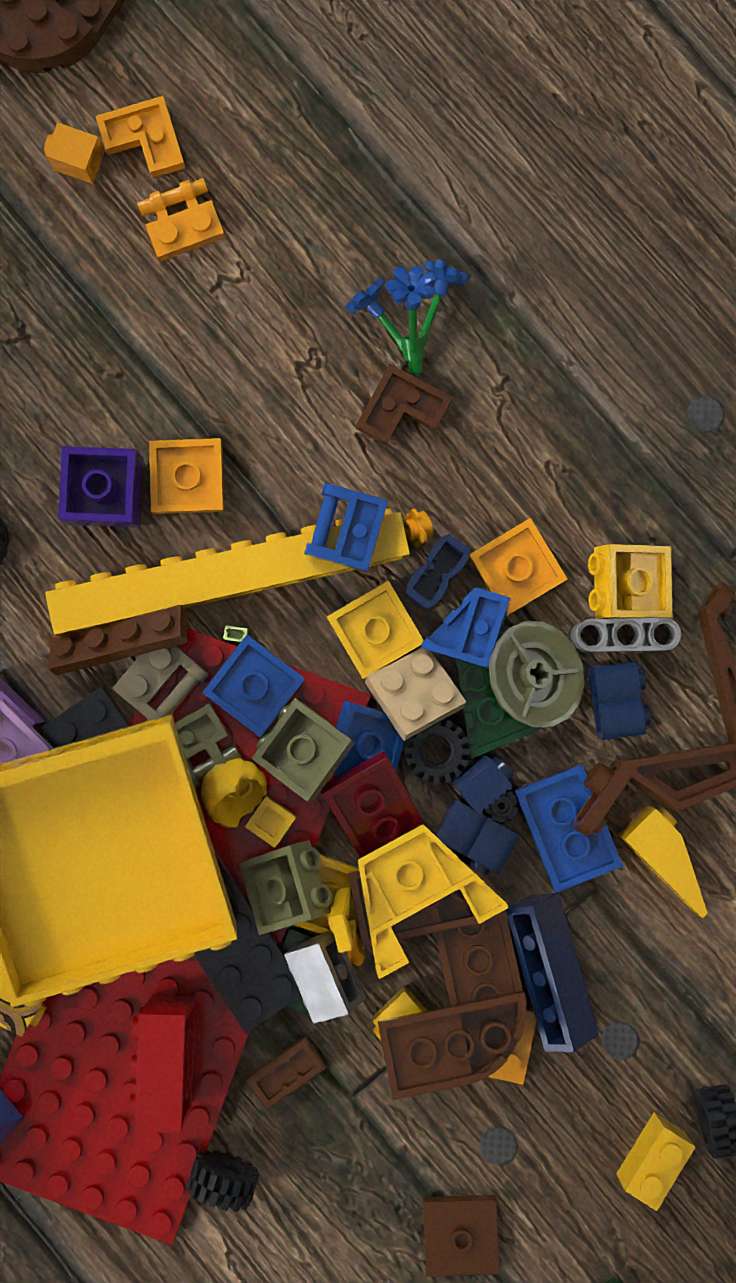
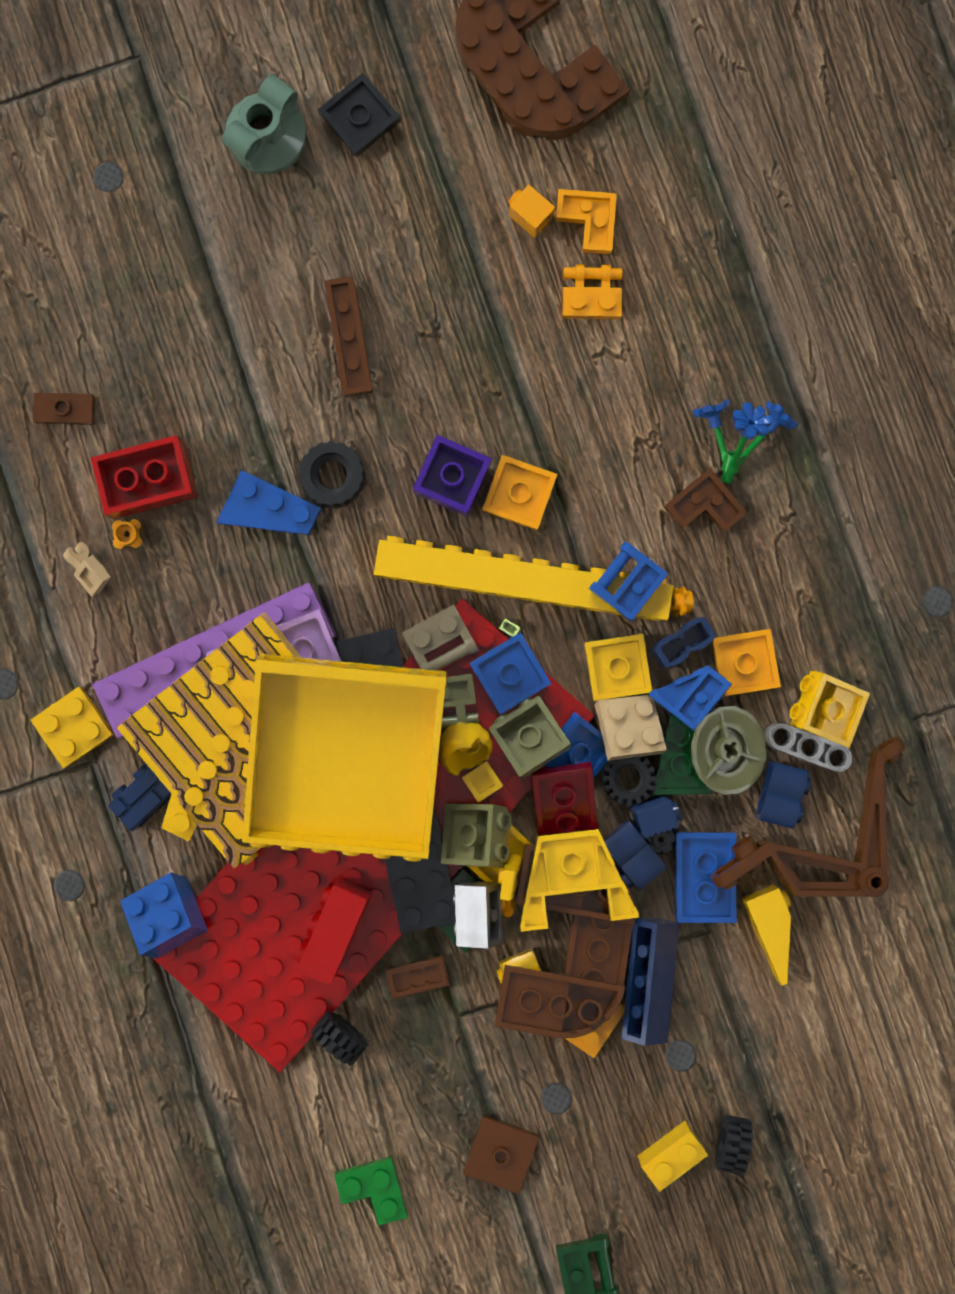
camera: 25 degrees right, 0 degrees up
(118, 640) = (420, 598): reddish brown plate -> none

